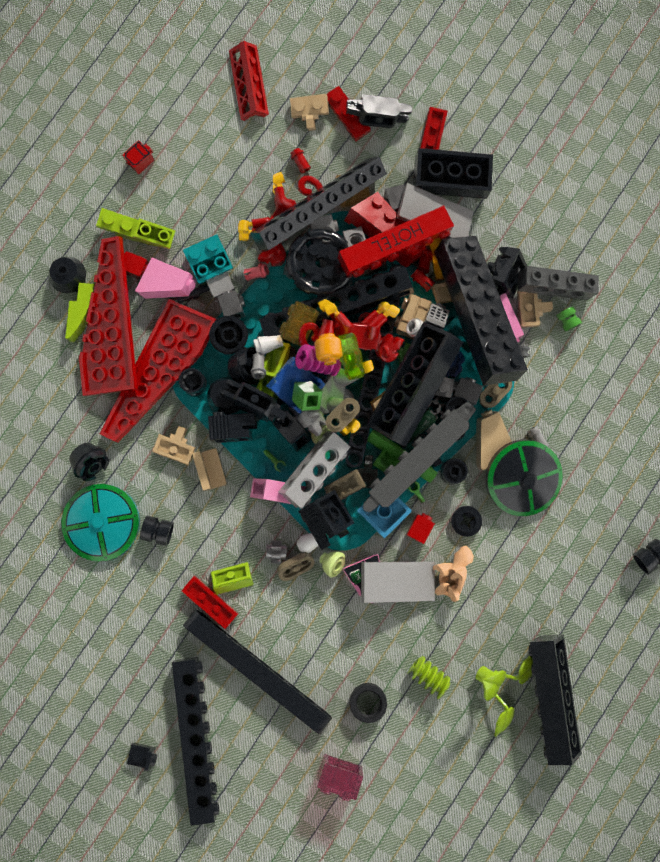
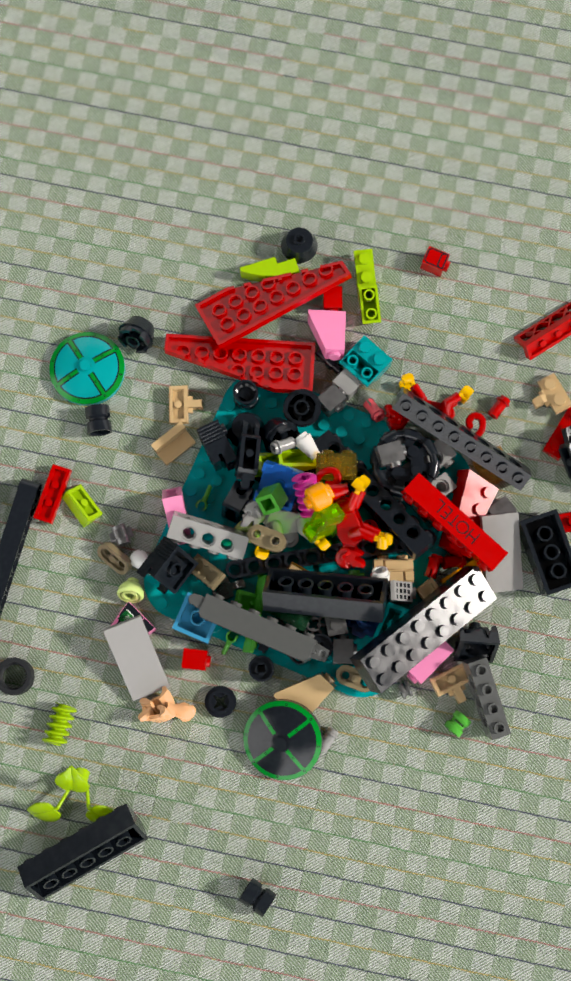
camera: 70 degrees right, 5 degrees down
(310, 270) = (391, 454): none -> flat silver brick

